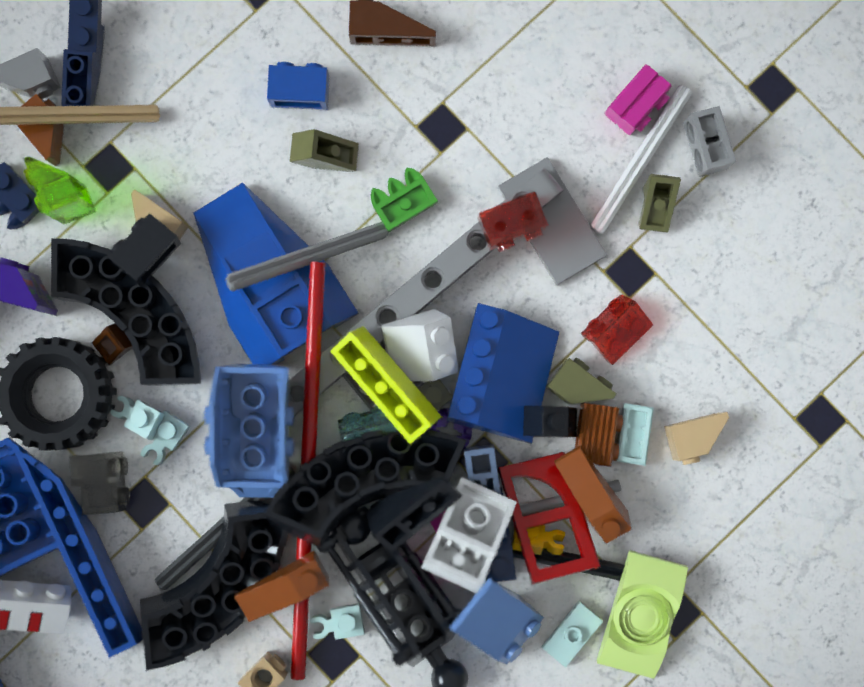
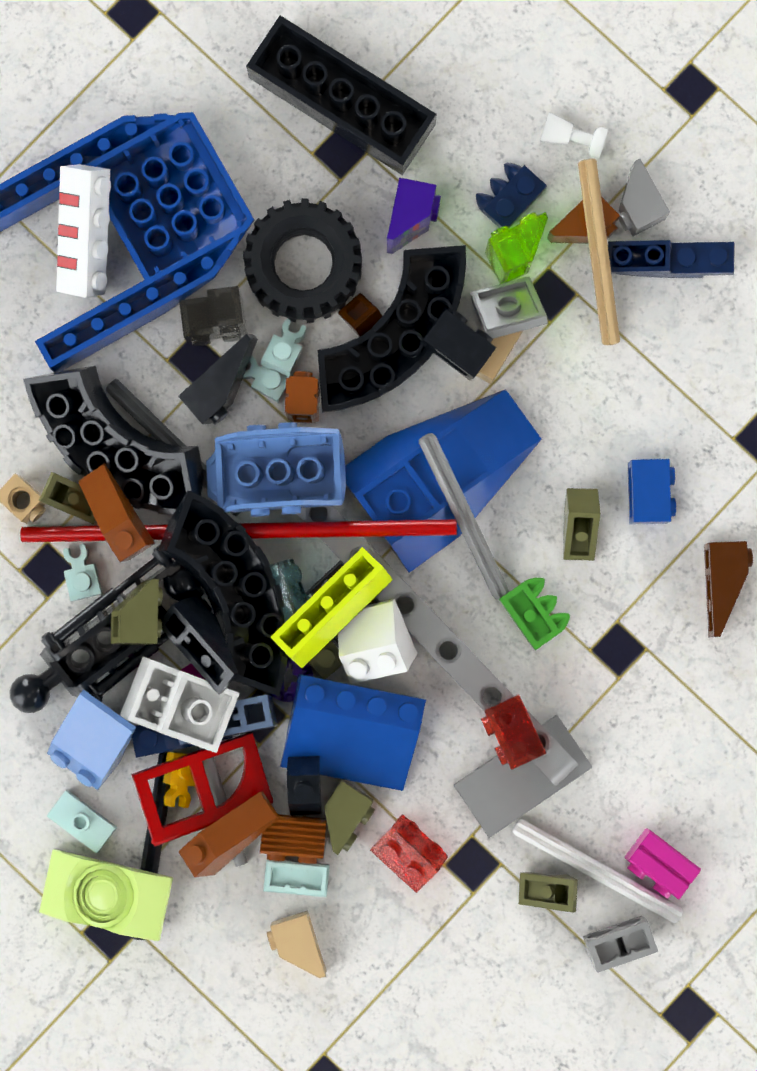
camera: 90 degrees right, 0 degrees up
(115, 202) = (509, 307): none -> light grey tile
(167, 481) = (219, 384): none -> black slope
(184, 401) = (302, 398): none -> dark orange brick
(263, 633) = (67, 497): none -> olive slope
(382, 571) = (137, 616): none -> olive slope

